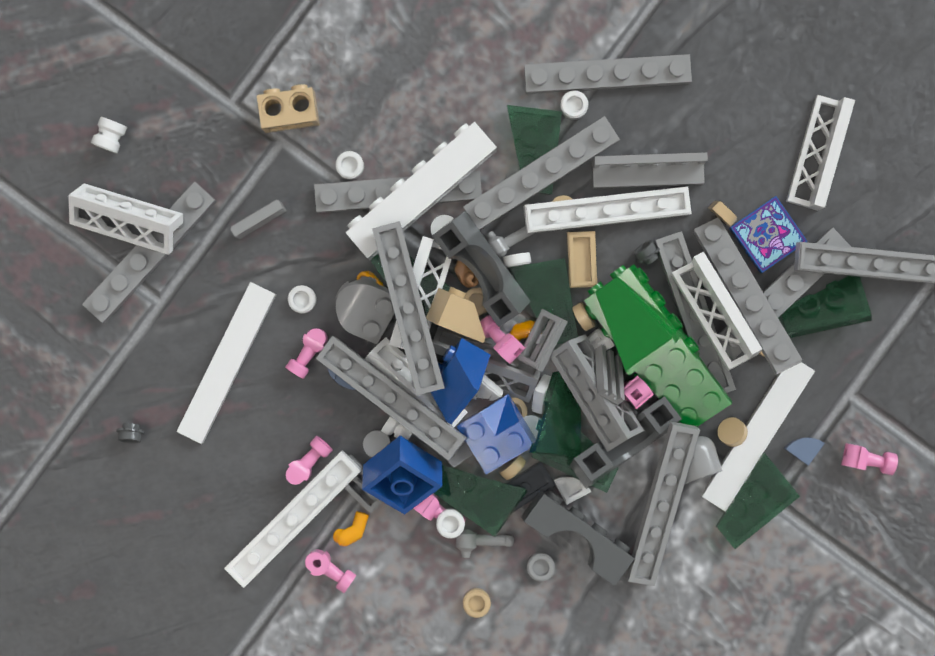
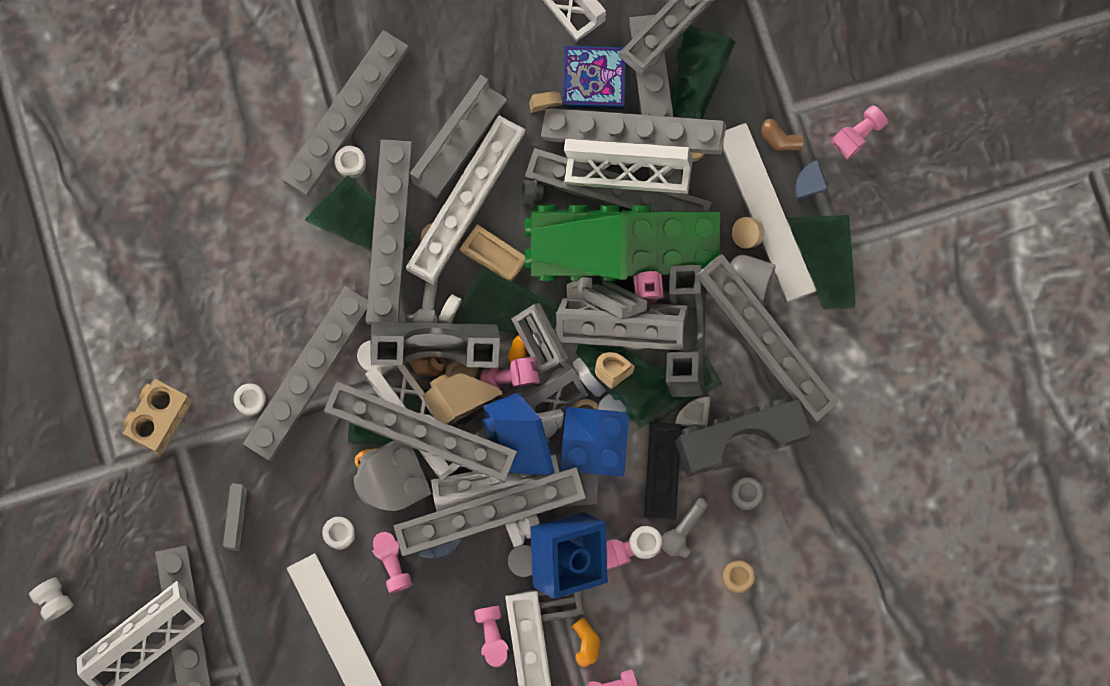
camera: 55 degrees left, 10 degrees down
(425, 187) = (322, 343): white brick -> none
(479, 499) = (643, 501): clear green wing -> none
(512, 467) = (635, 451): tan tile -> none
(557, 411) = (613, 369): none -> tan tile
(583, 317) = (546, 287): tan tile -> none
(820, 401) = (778, 139): none -> medium nougat arm

